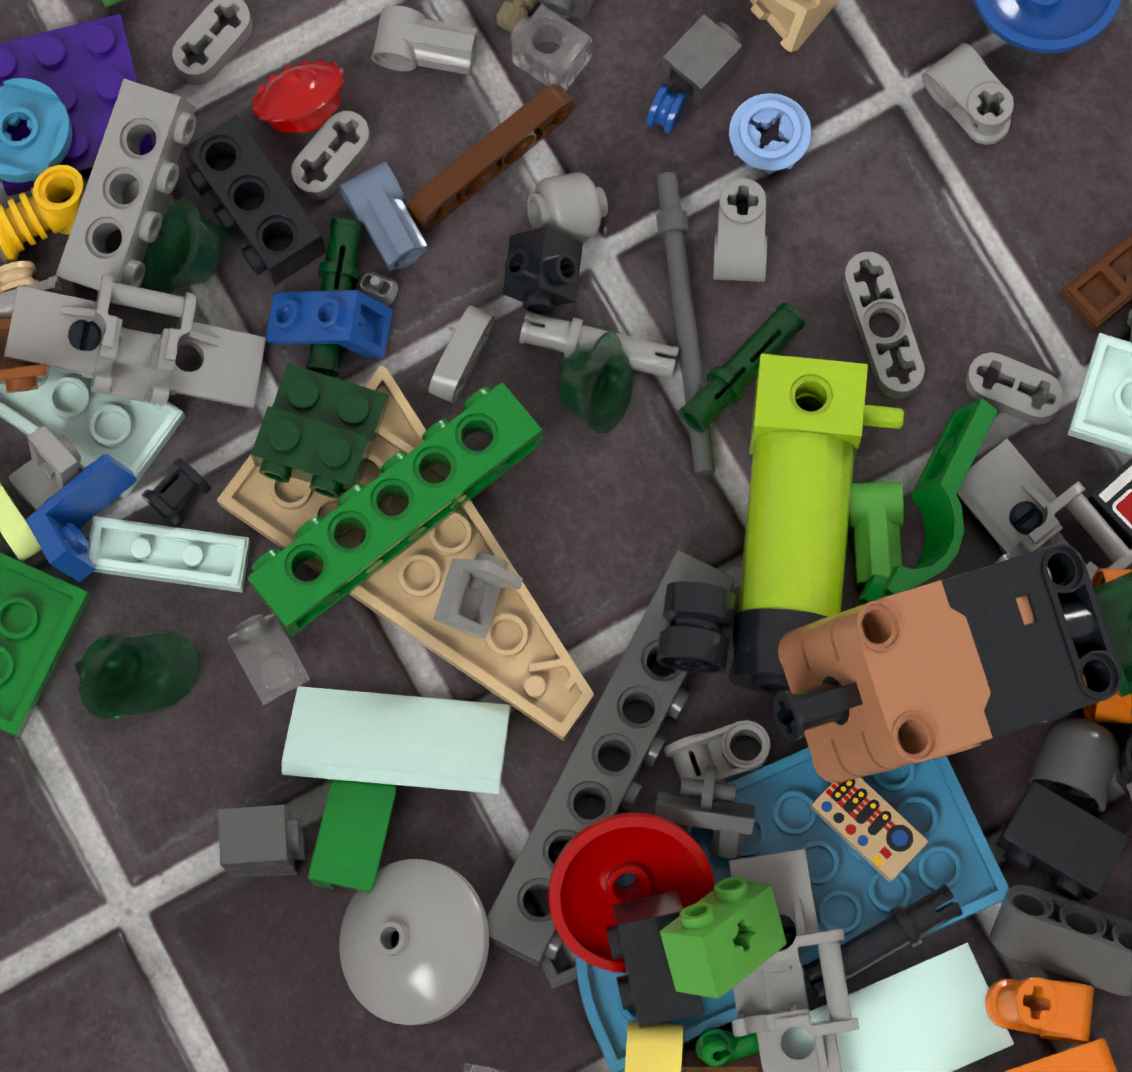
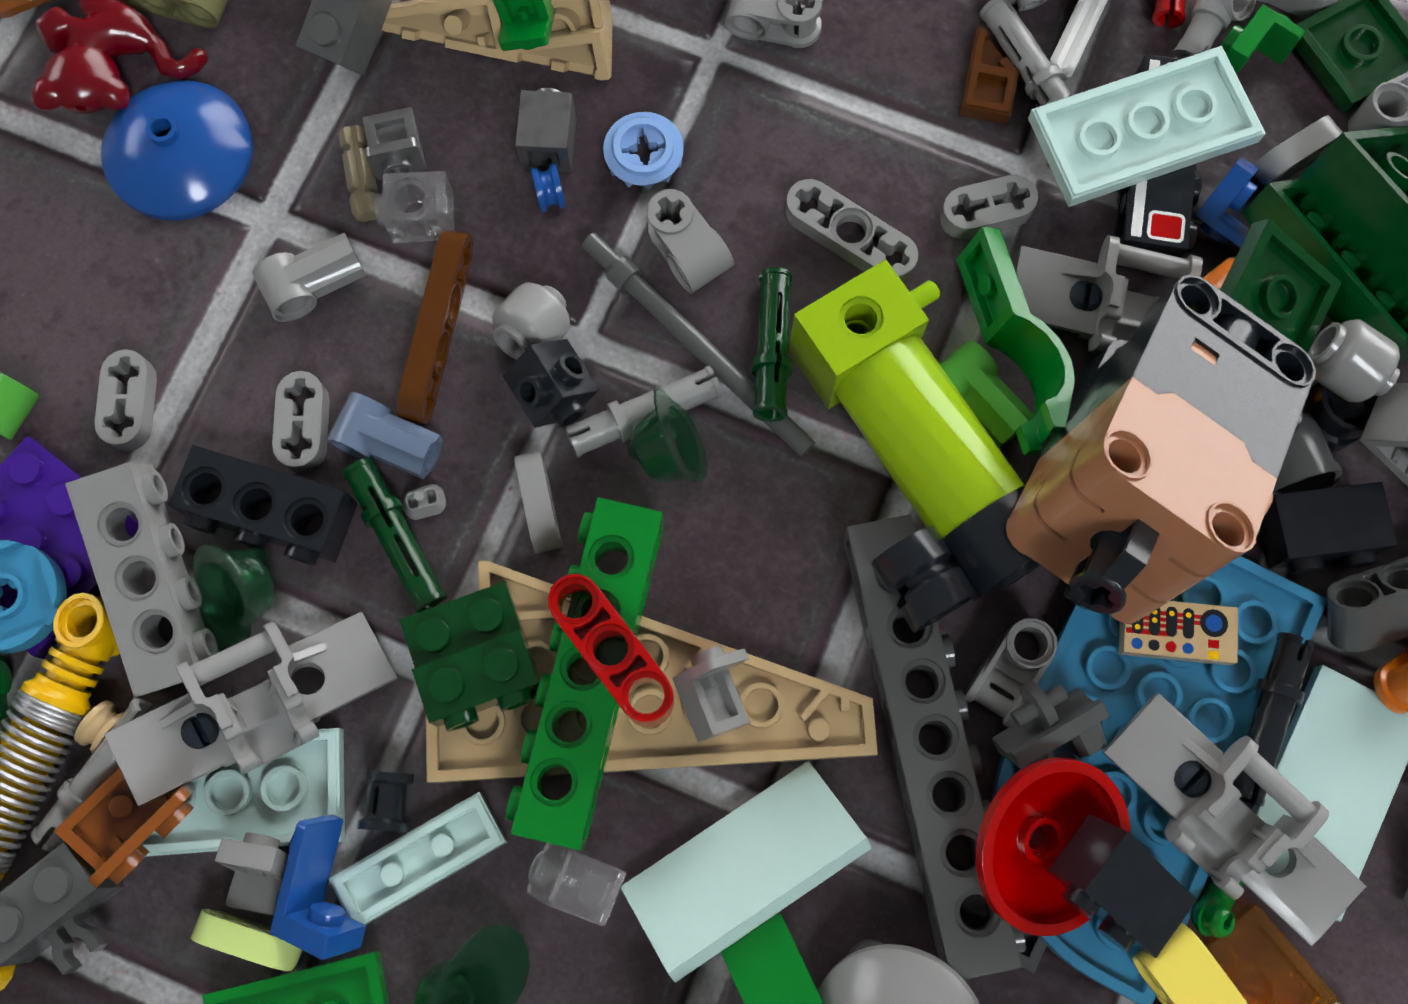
camera: 40 degrees left, 0 degrees up
(300, 96) = (237, 391): red piece -> none
(330, 318) = (404, 555): blue bracket -> none
(414, 475) = (604, 623): none -> red beam
(723, 937) = (1176, 829): bright green brick -> none

